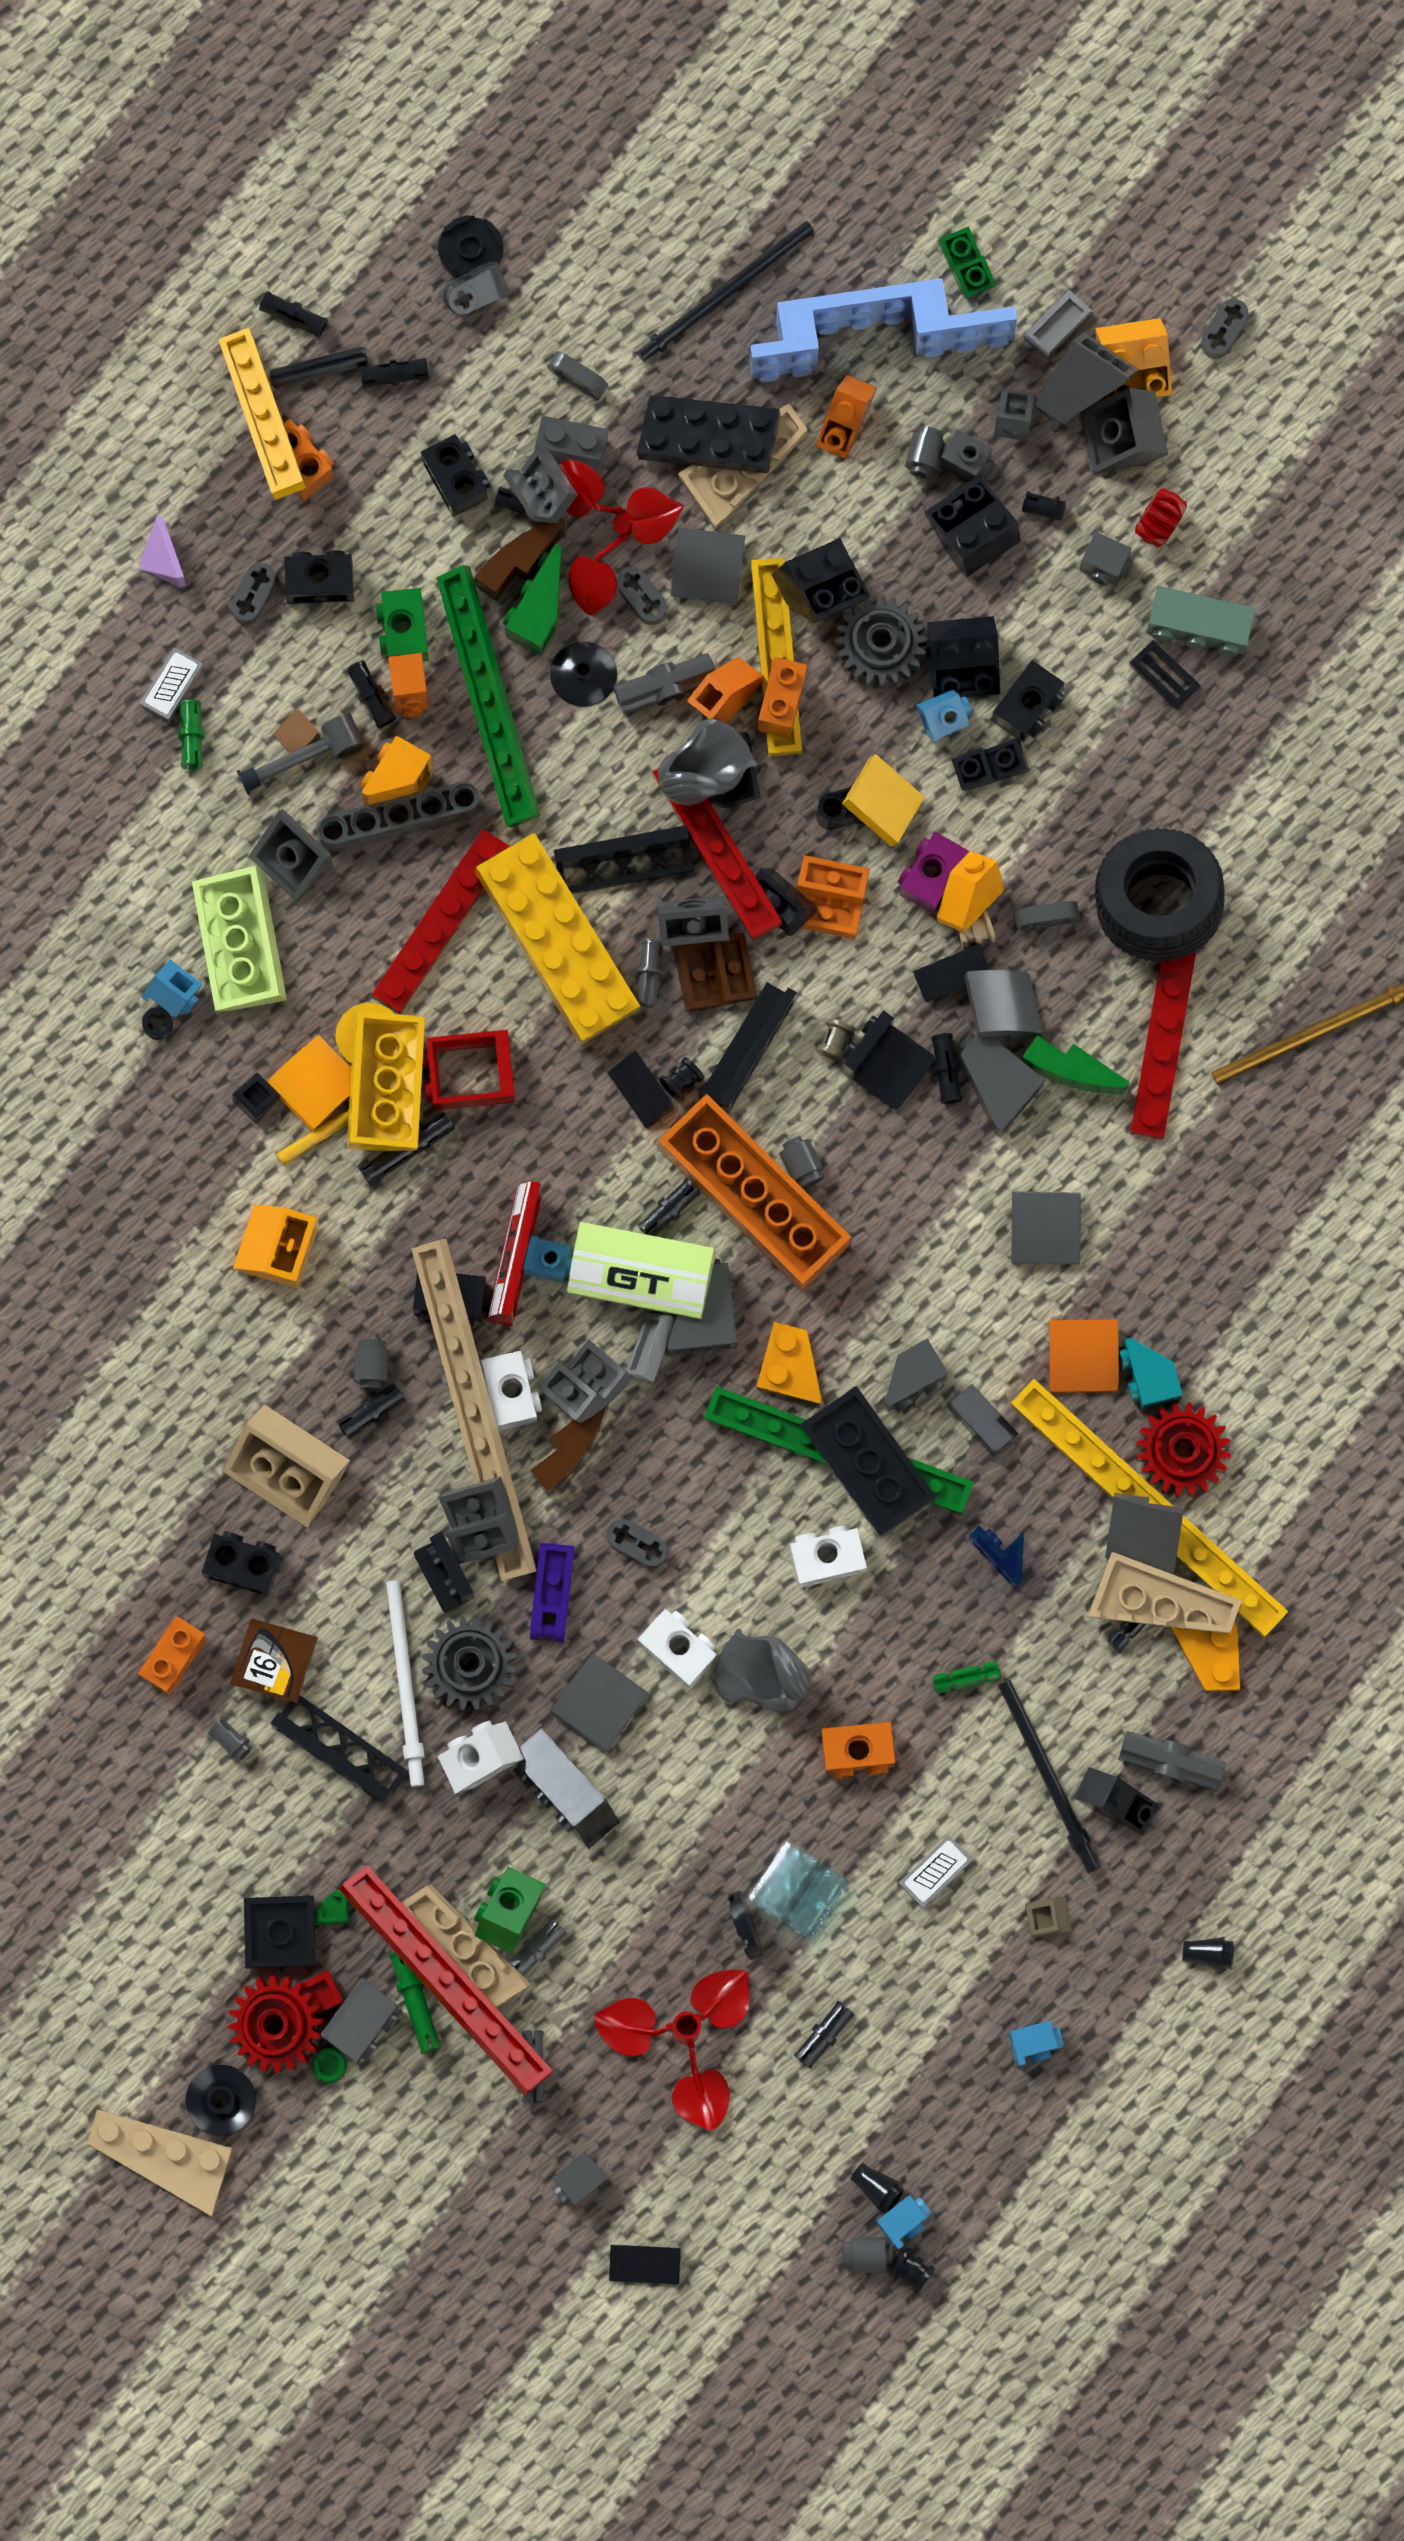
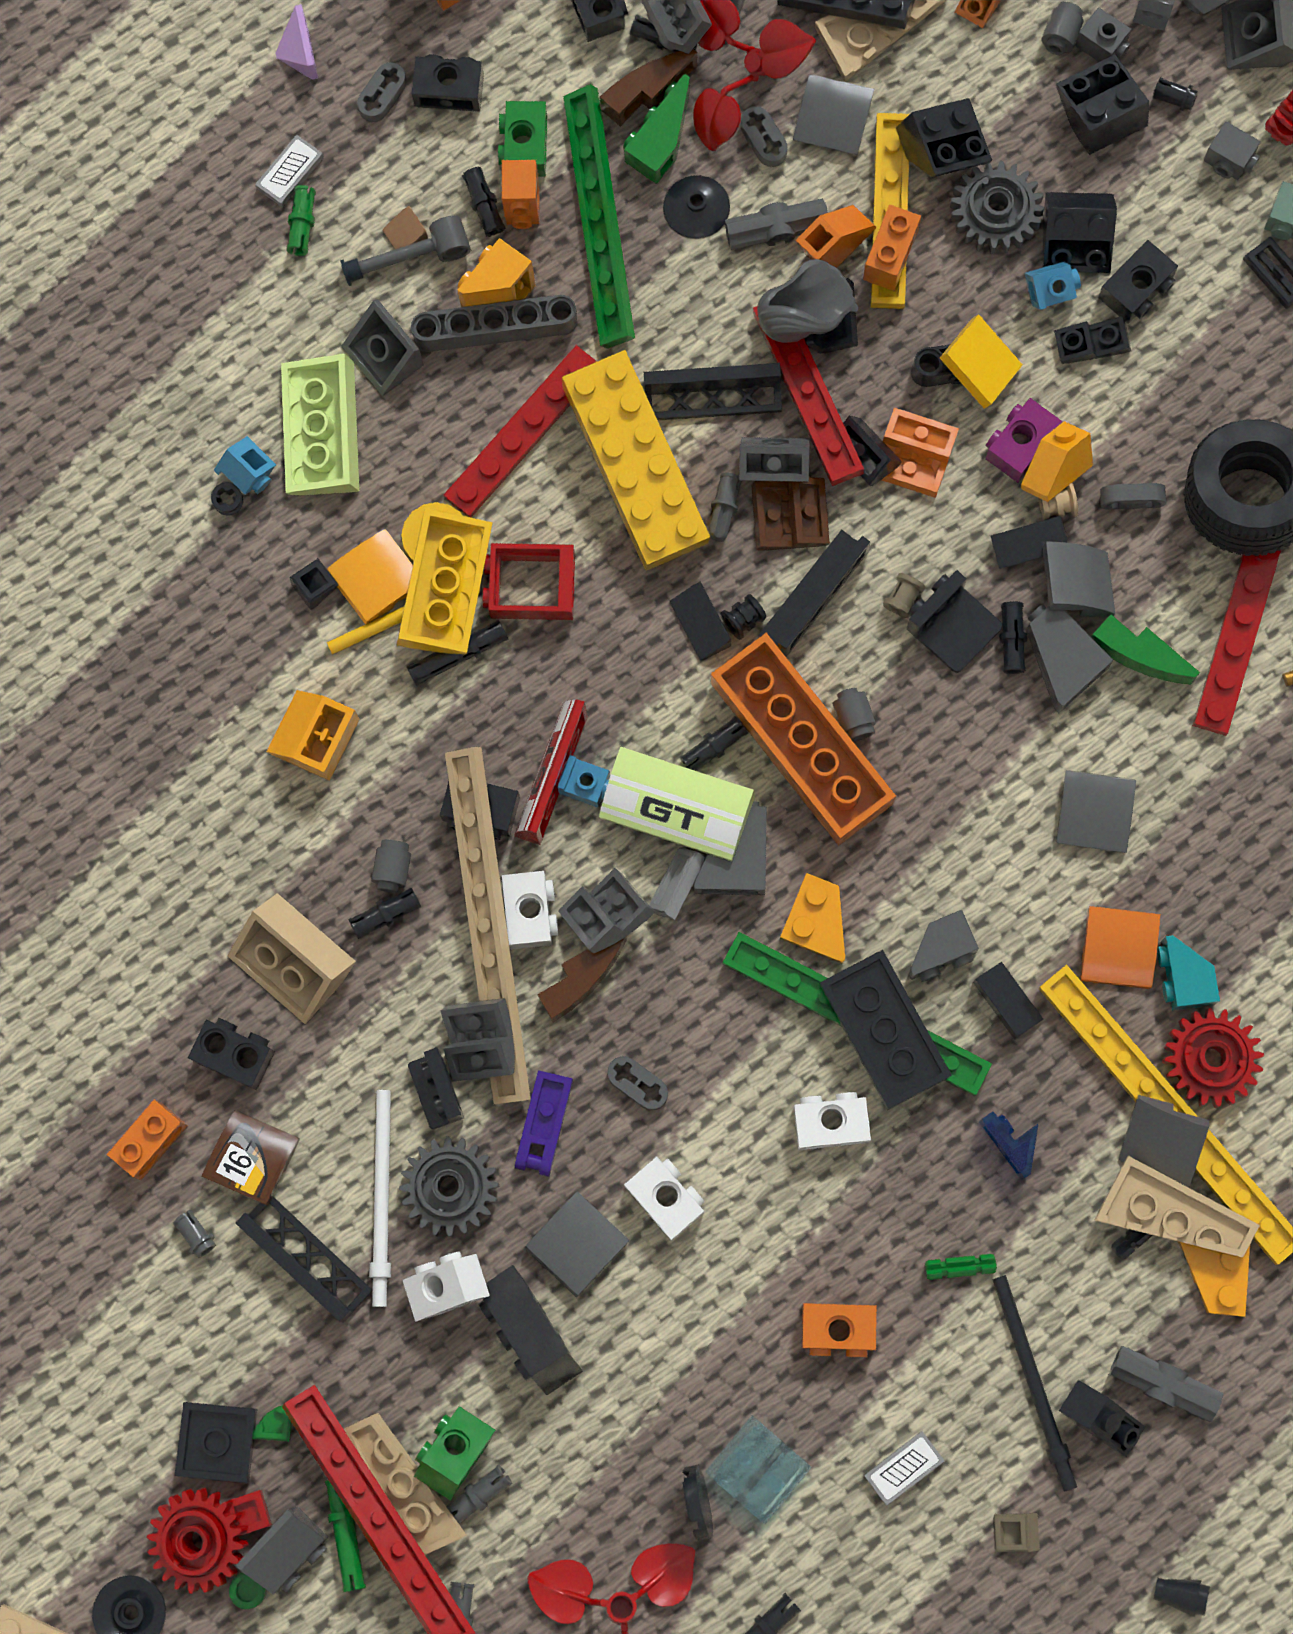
camera: 15 degrees right, 0 degrees up
(762, 1673) = (749, 1235): dark grey piece -> none

